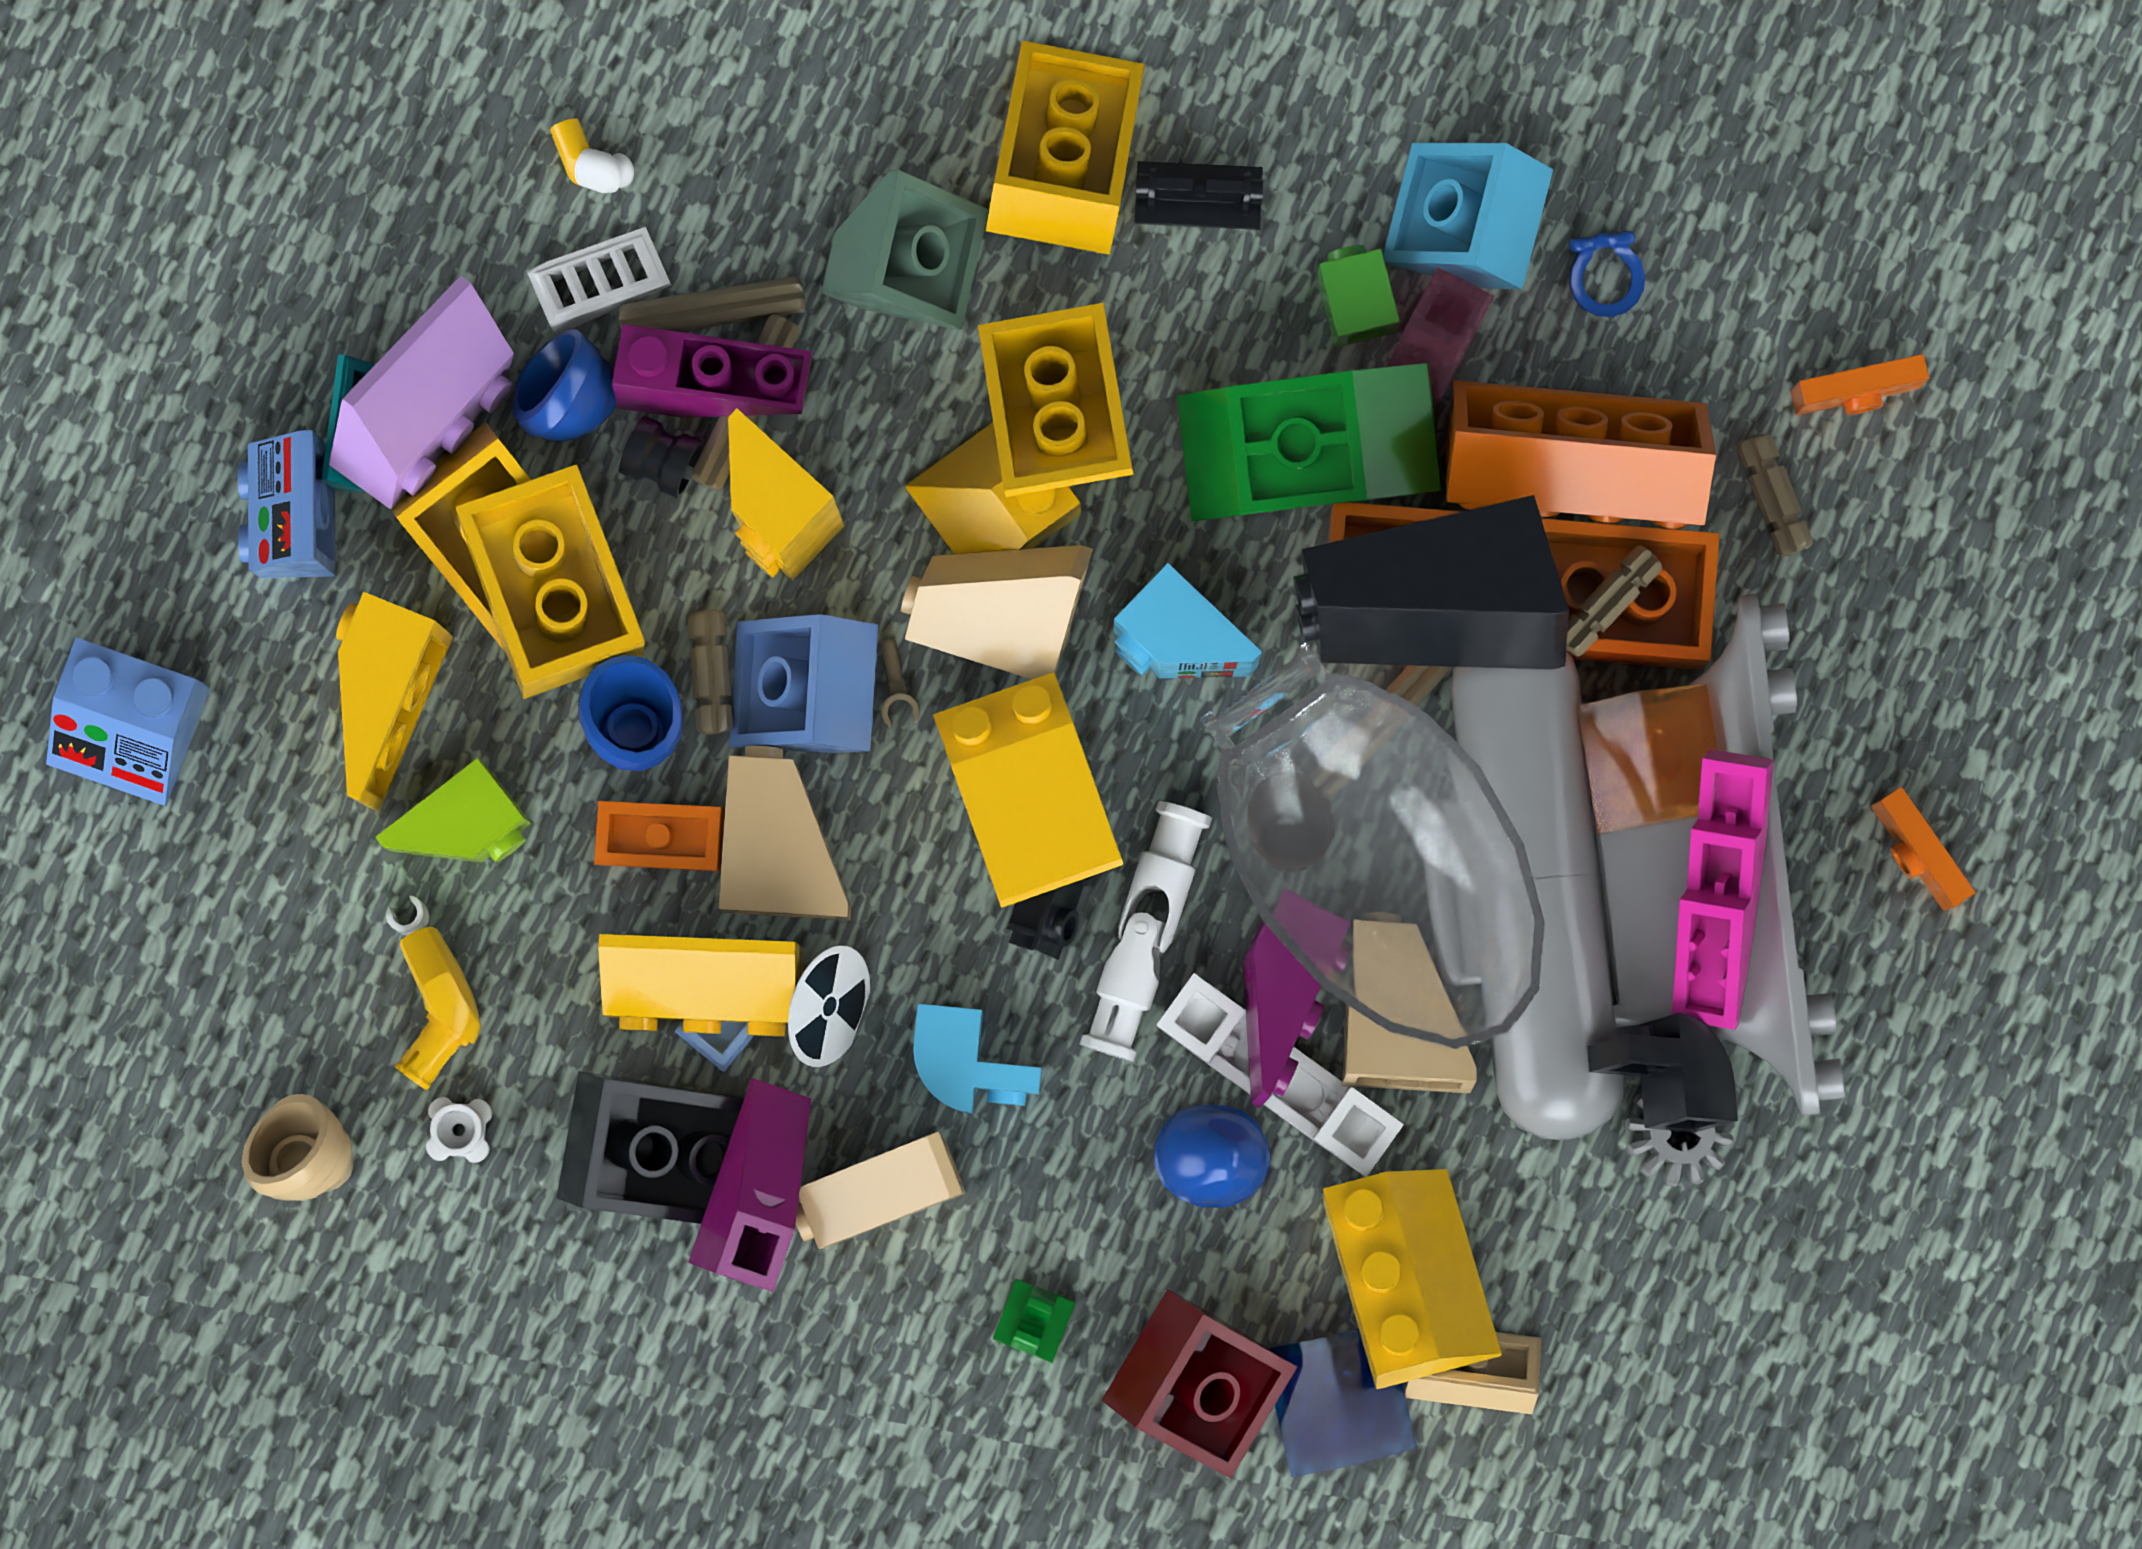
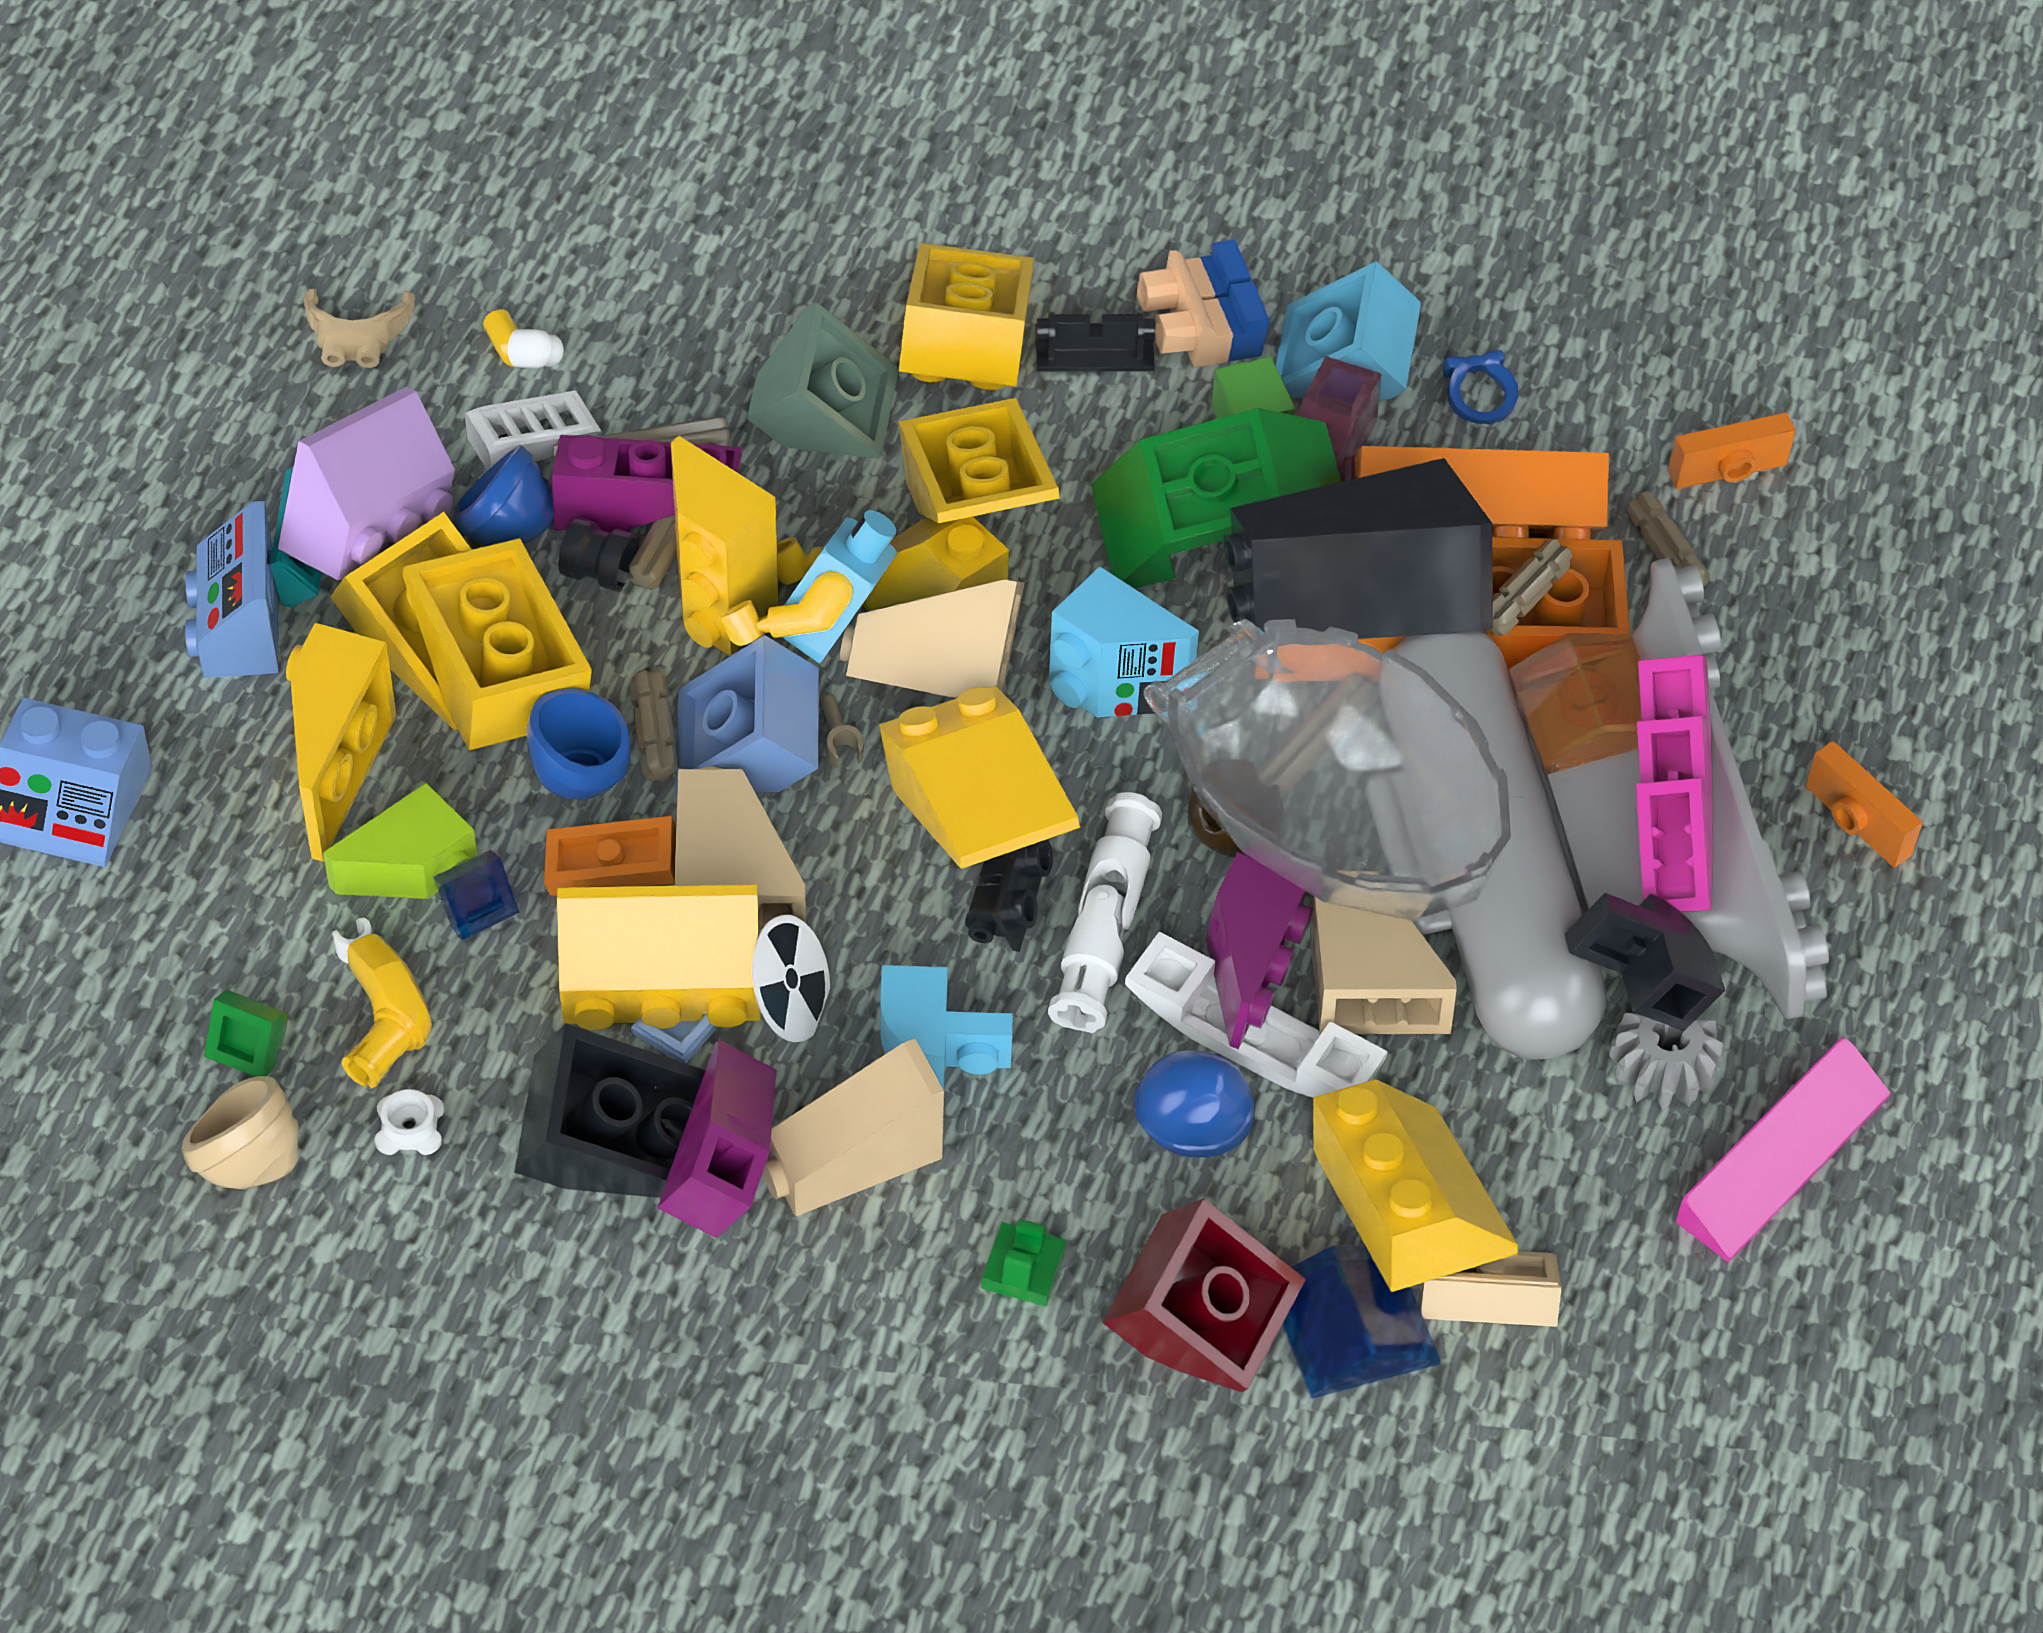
camera: 10 degrees left, 30 degrees down
(301, 1025) = (245, 1034): none -> green tile
(415, 153) = (356, 339): none -> tan helmet
(526, 877) = (476, 894): none -> clear blue plate
(892, 547) = (829, 594): none -> torso
(1327, 152) = (1211, 306): none -> light nougat hips
(1778, 1243) = (1782, 1151): none -> slope

